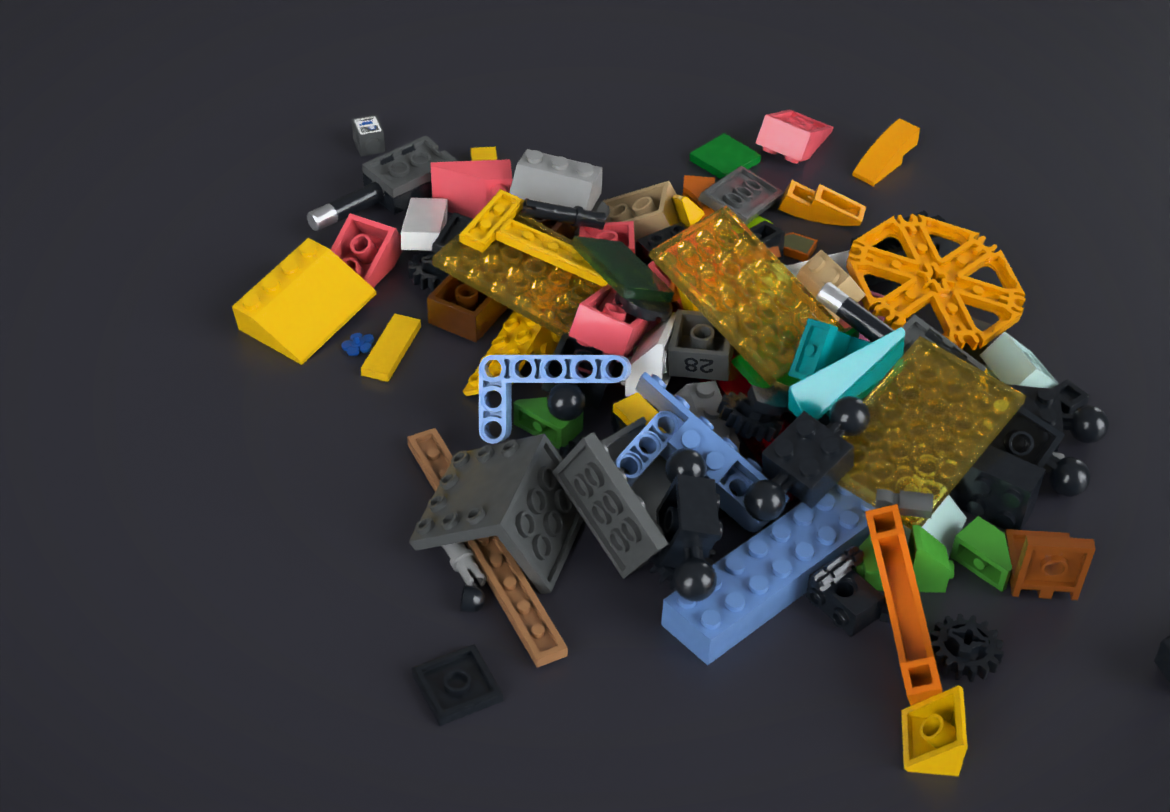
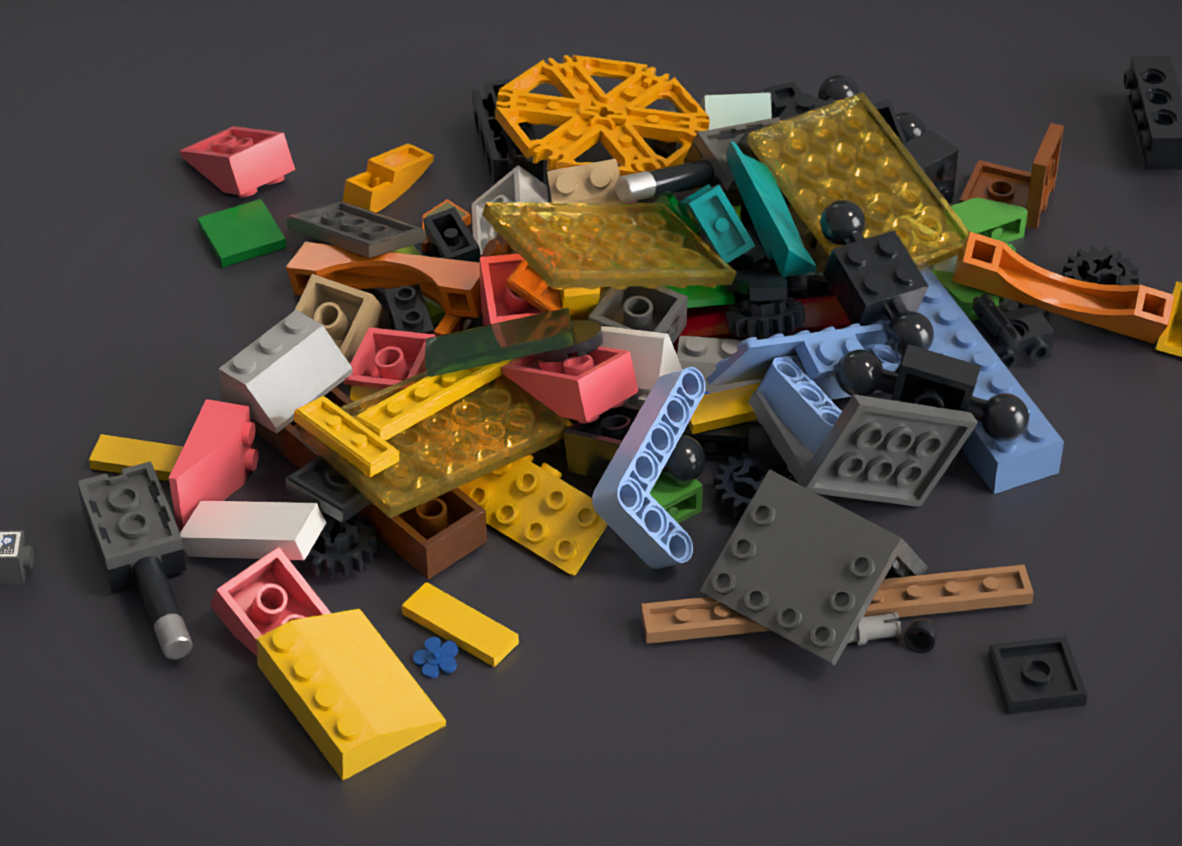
camera: 70 degrees left, 0 degrees up
(575, 216) = (354, 368): black pin -> none
(687, 210) = (379, 275): yellow slope -> none
(887, 152) = (320, 95): light orange slope -> none
(909, 503) = (956, 231): dark grey bar -> none

